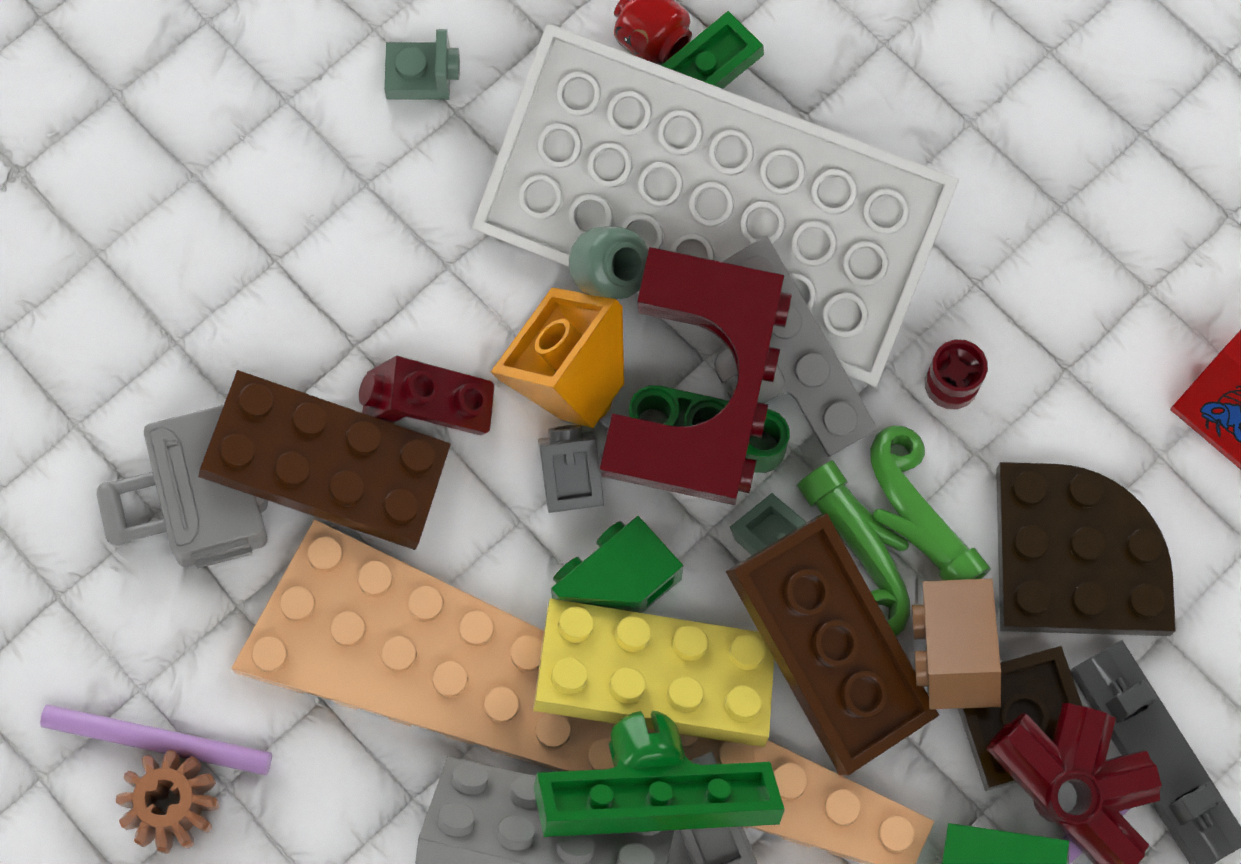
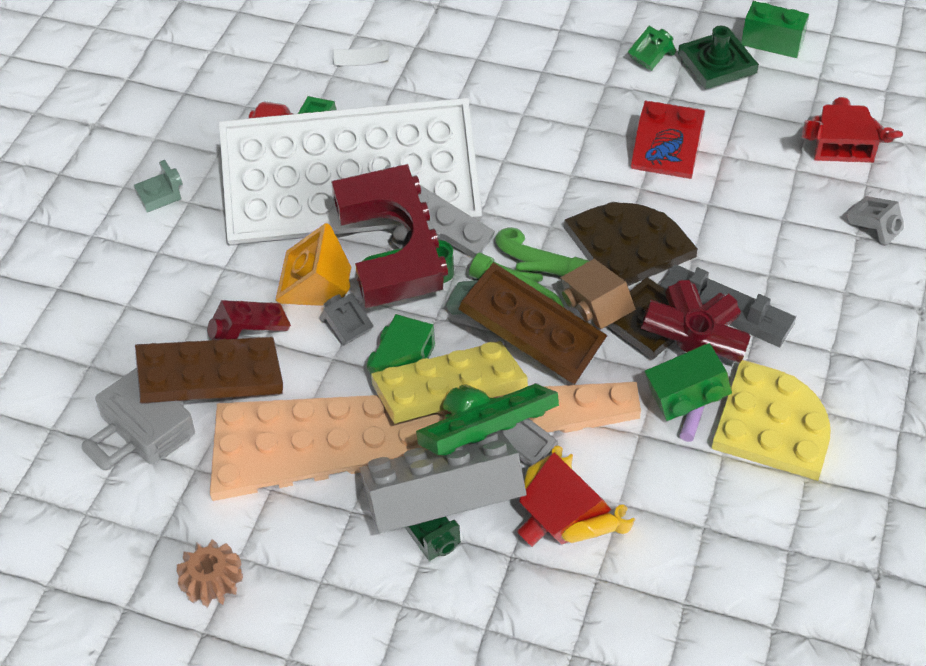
camera: 25 degrees left, 20 degrees down
(156, 739) = (175, 553): lavender bar -> none
(608, 262) = (312, 211): sand green head -> none
(963, 365) = (518, 193): dark red wheel -> none

